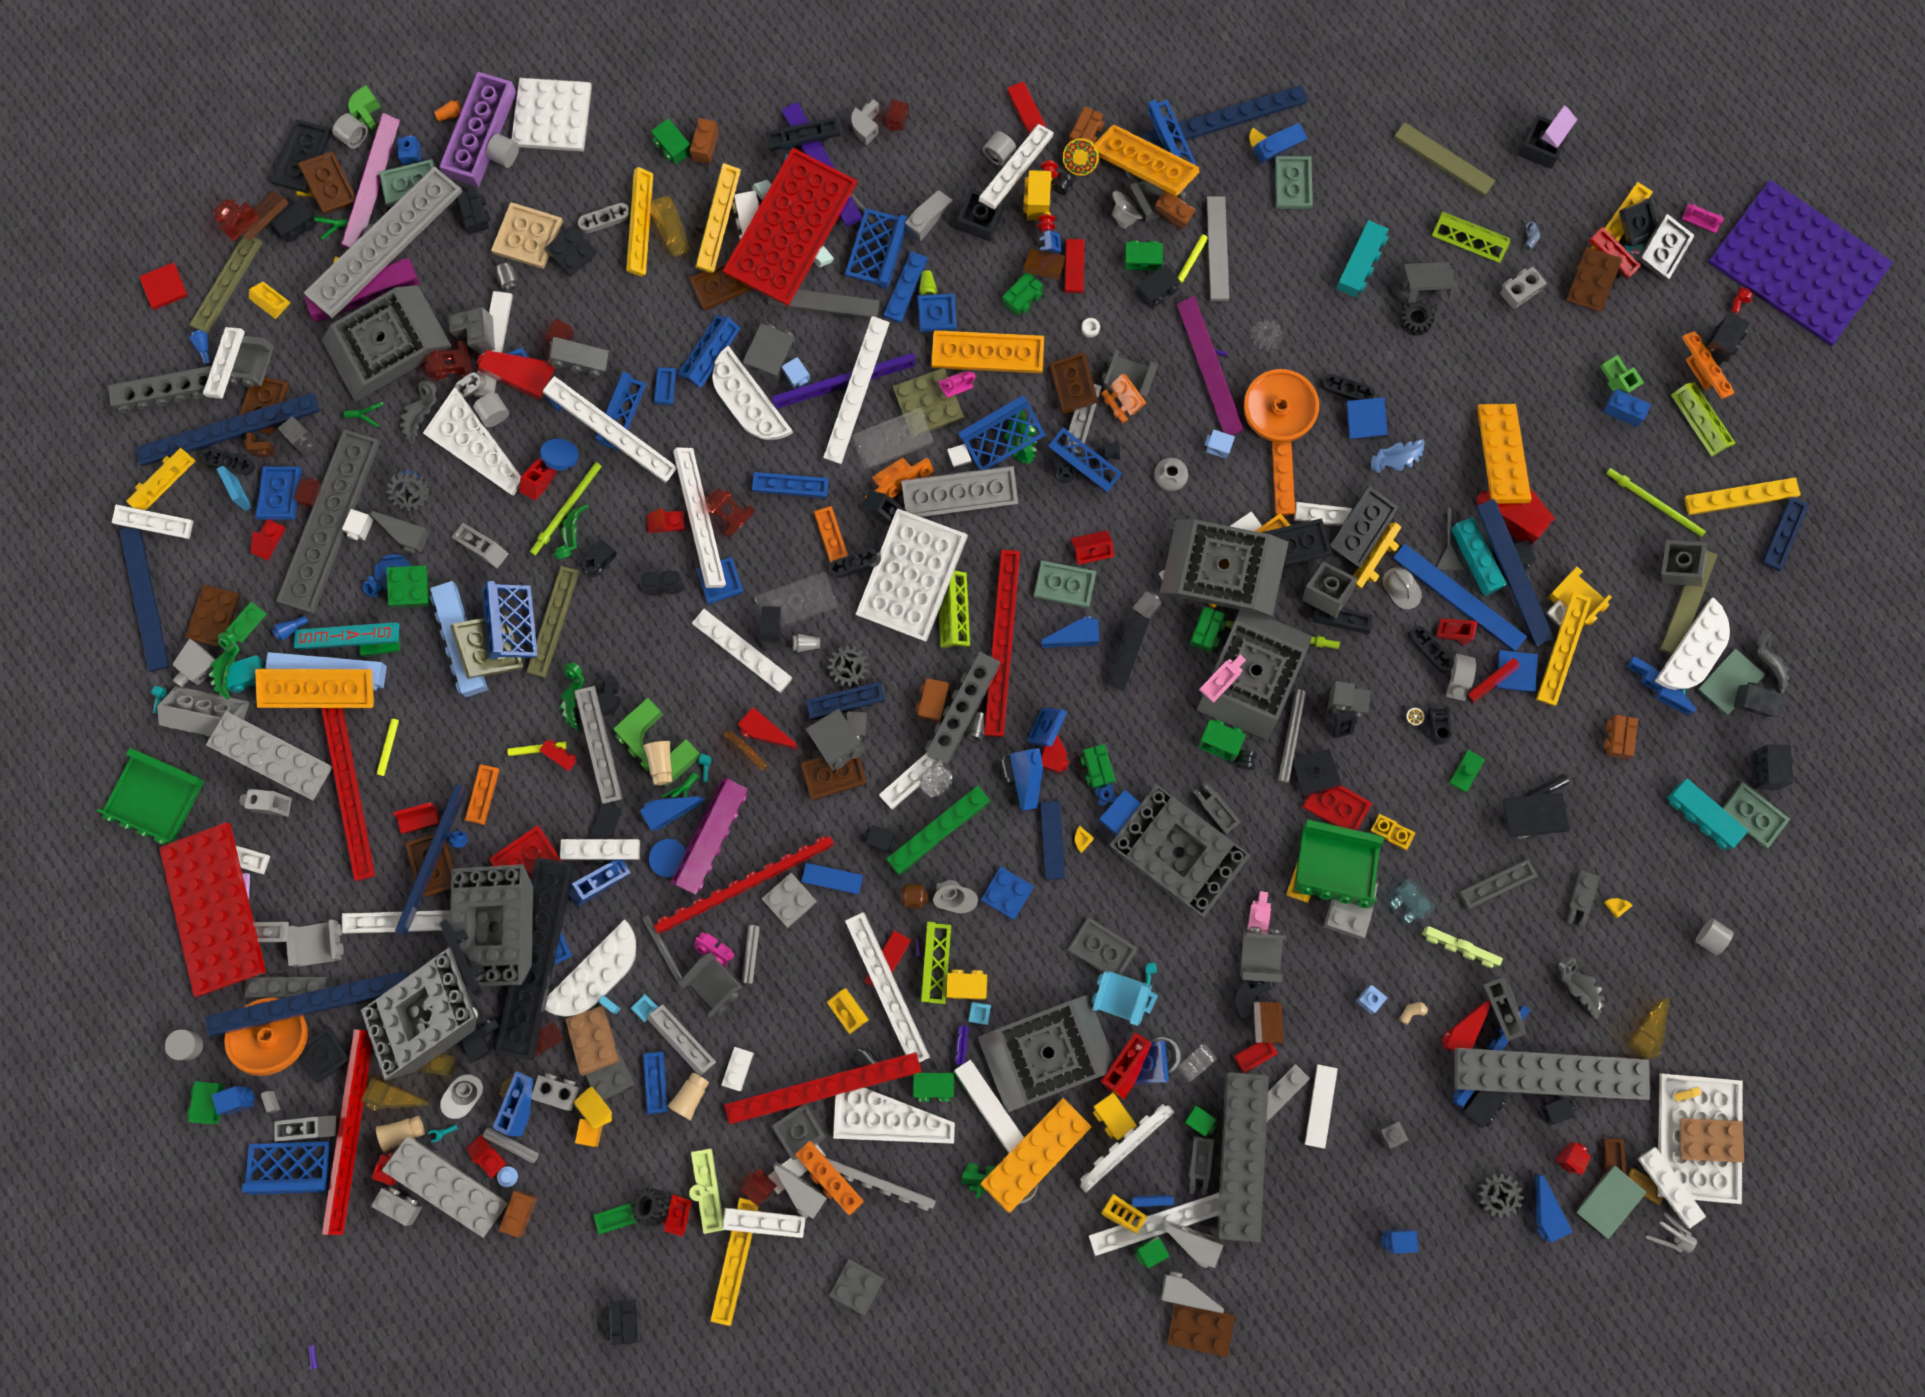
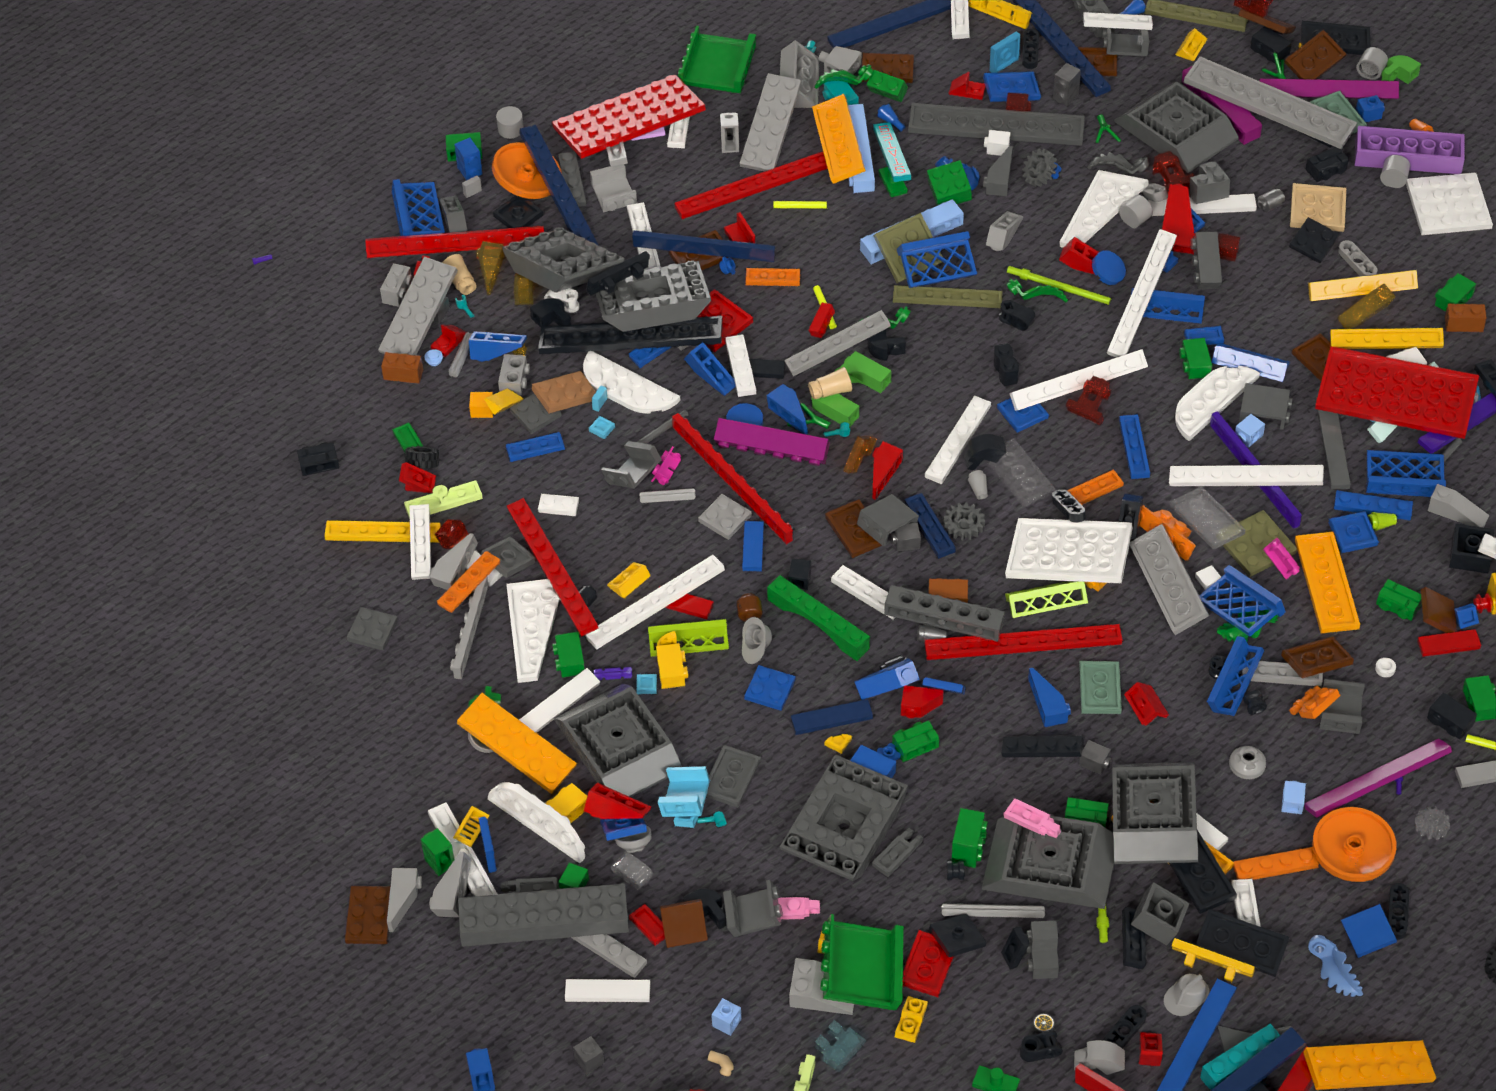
camera: 80 degrees right, 25 degrees down
(261, 449) = (1049, 61): reddish brown bracket -> none
(461, 1096) = (498, 307): light grey piece -> none
(548, 1038) = (559, 362): clear red tile -> none
(665, 521) = (1068, 359): red slope -> none
(681, 1040) = (576, 456): light grey plate -> none
(689, 1096) = (525, 469): tan plant -> none
(695, 400) = (1196, 358): none -> green brick
(935, 780) = (867, 605): clear gear -> none
(940, 985) = (669, 638): none -> yellow tile

